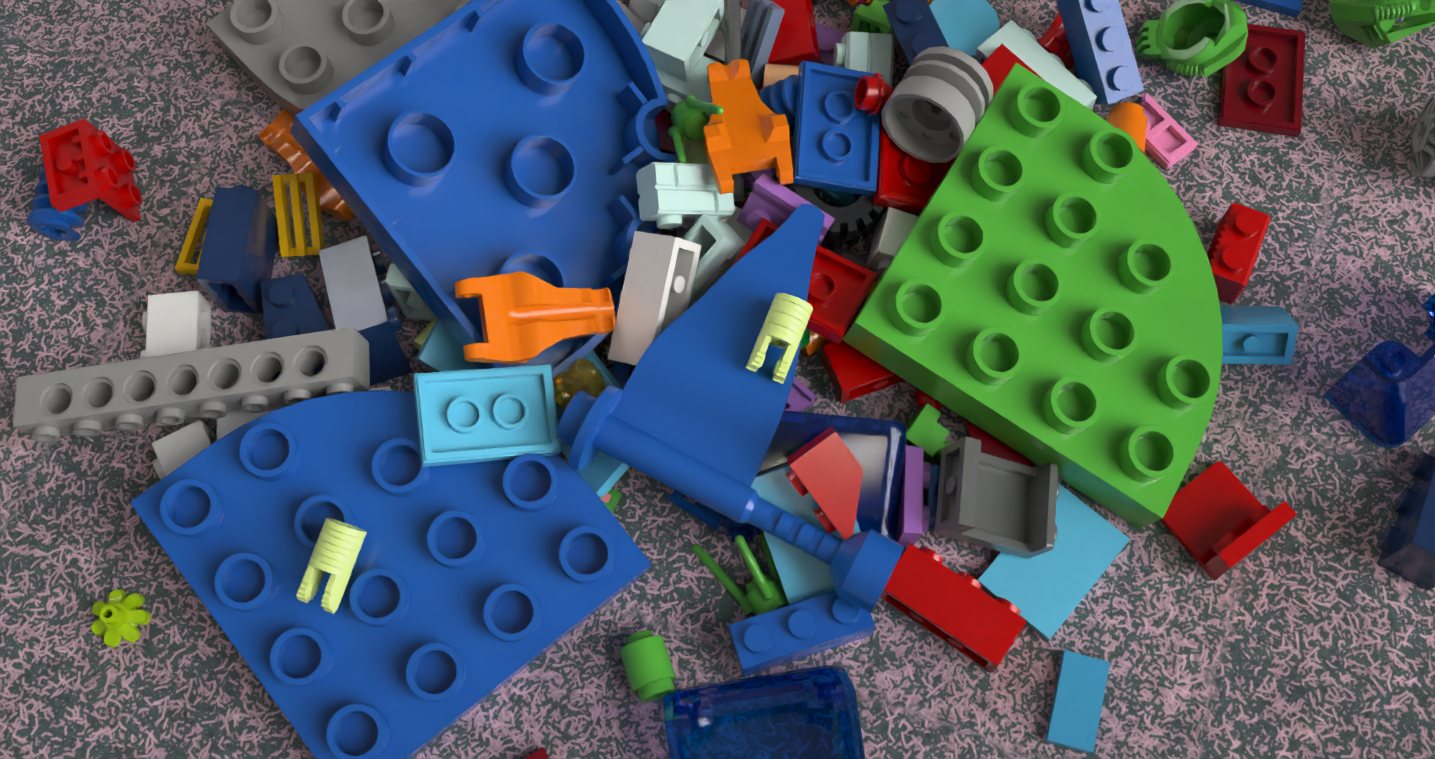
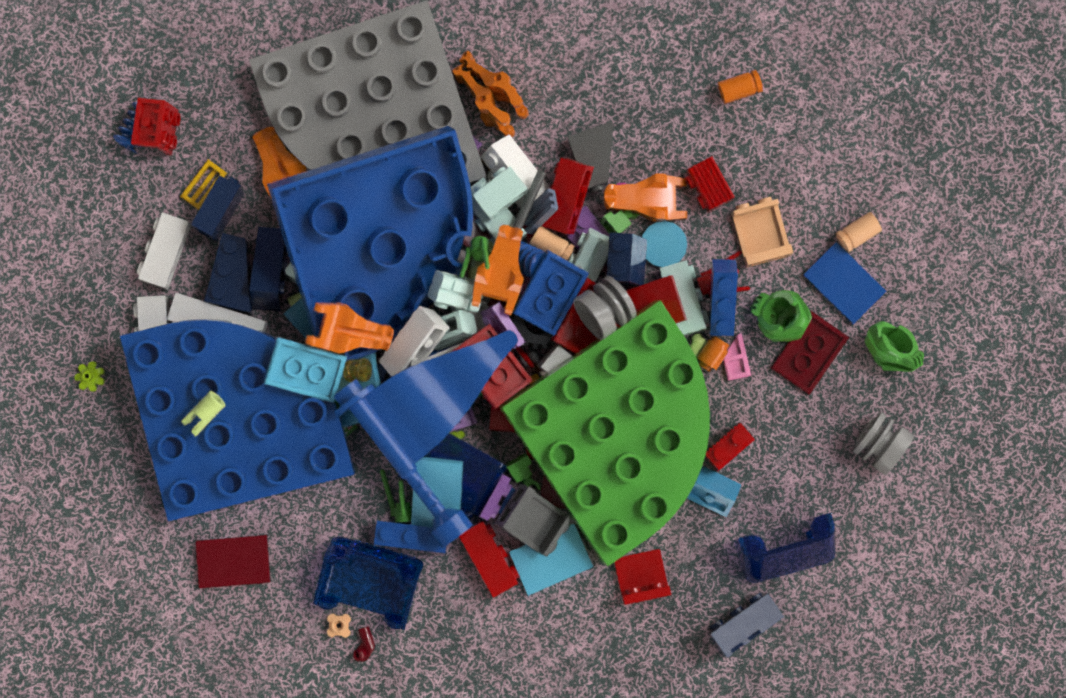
camera: 20 degrees right, 15 degrees up
(78, 398) = (92, 250): light grey brick -> none
(283, 215) = (250, 214): yellow tile -> none
(648, 666) = (332, 520): bright green brick -> none
(783, 330) = (464, 395): yellowish green hinge -> none
(832, 478) = (452, 477): slope -> none
(871, 93) = (574, 285): red plate -> none
(1077, 702) = (526, 630): dark azure tile -> none

